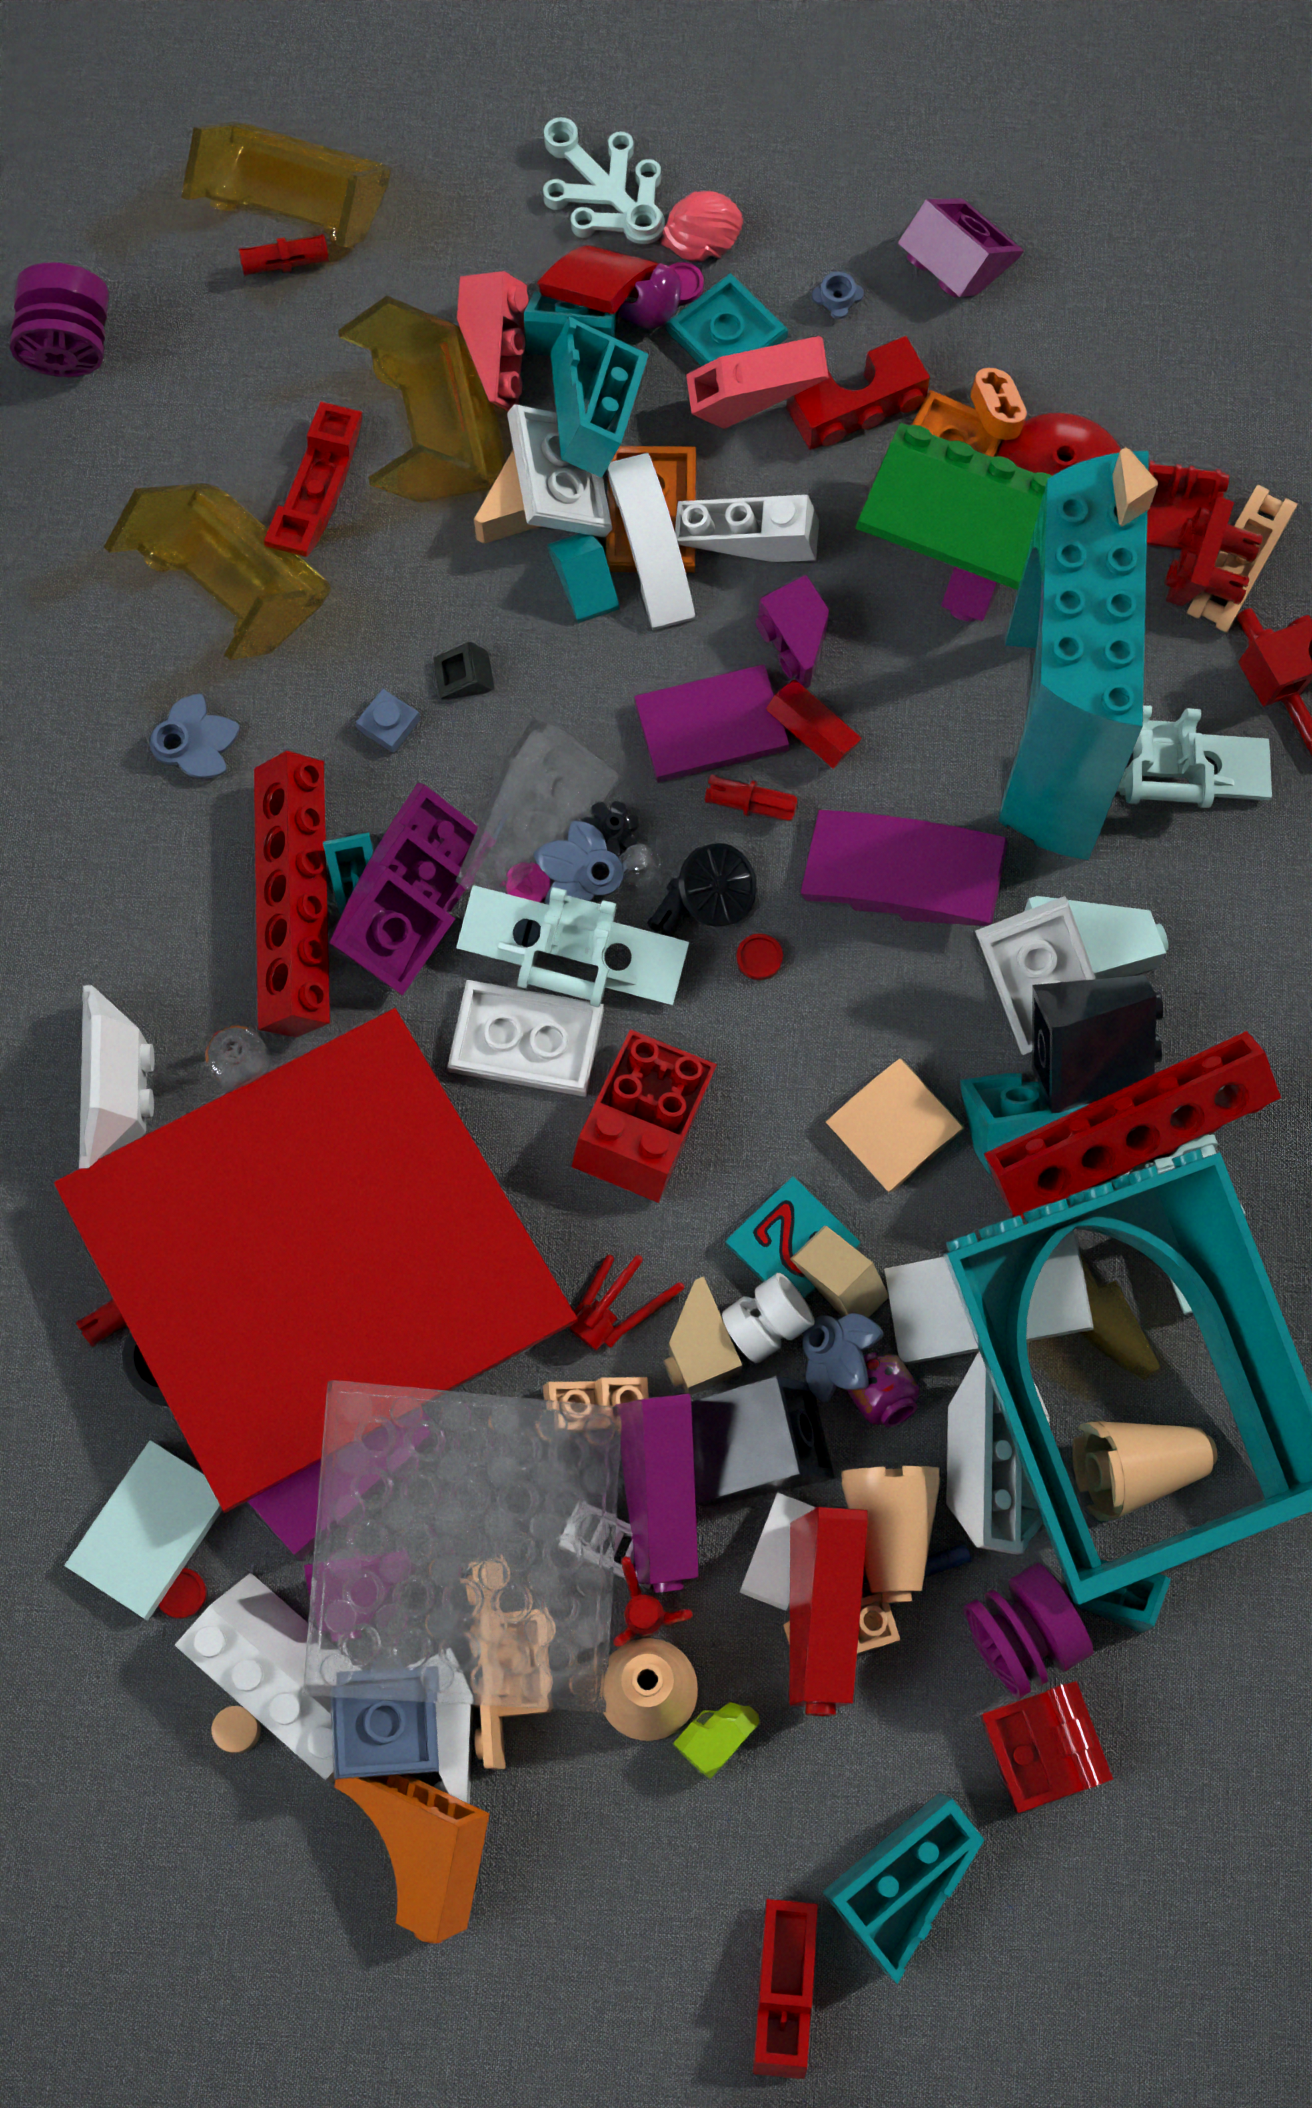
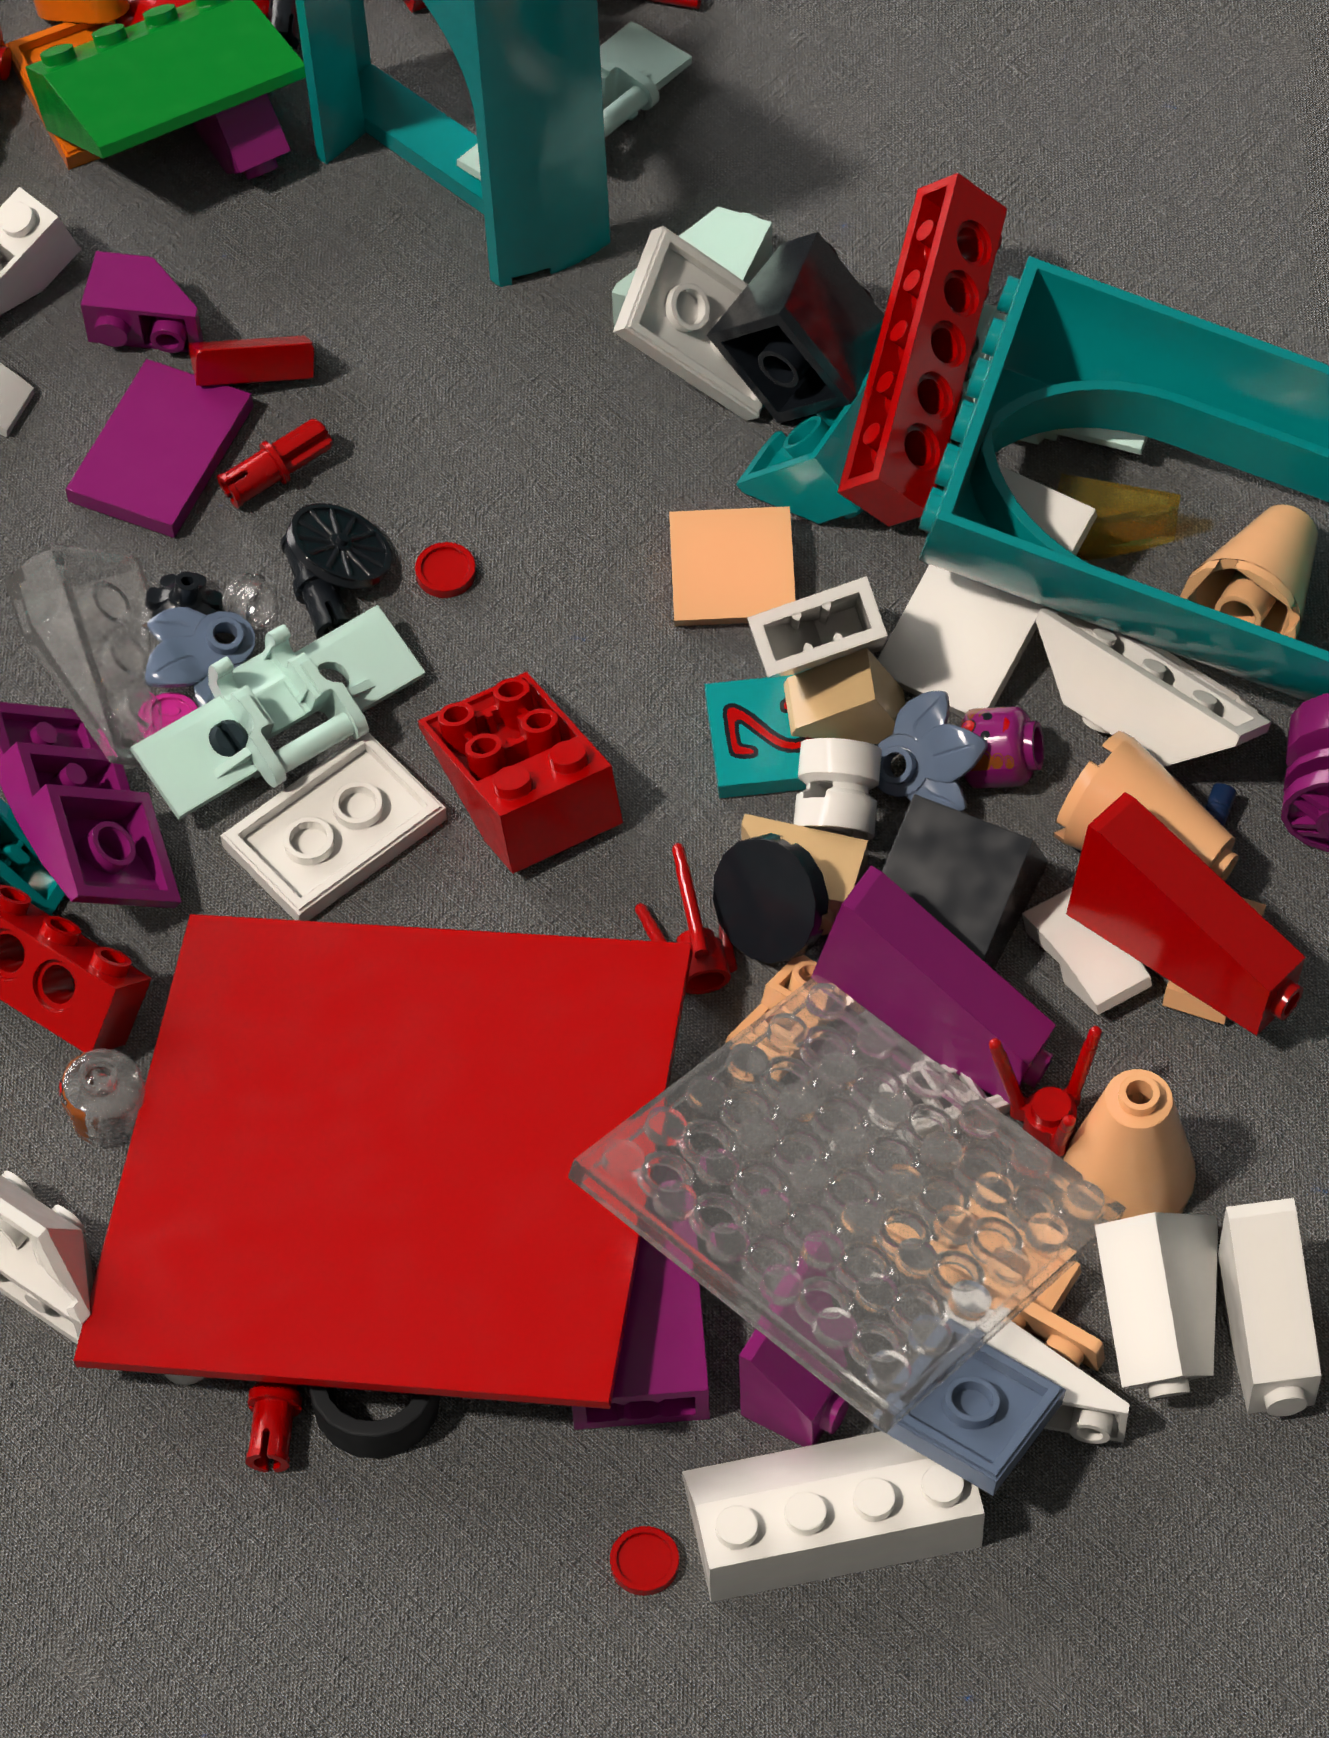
camera: 50 degrees left, 15 degrees down
(147, 1531) = (547, 1542): light aqua tile -> none
(235, 1730) = (846, 1598): light nougat piece -> none
(432, 1847) = (1138, 1455): orange arch -> none
(559, 1778) = (1161, 1298): none -> white slope
(595, 1854) = (1268, 1307): none -> white slope
(655, 1337) = (770, 898): none -> black tile
(716, 1736) = (1235, 1135): lime rock -> none
(862, 1225) = (818, 629): none -> white slope
(904, 867) = (476, 380): magenta slope -> none

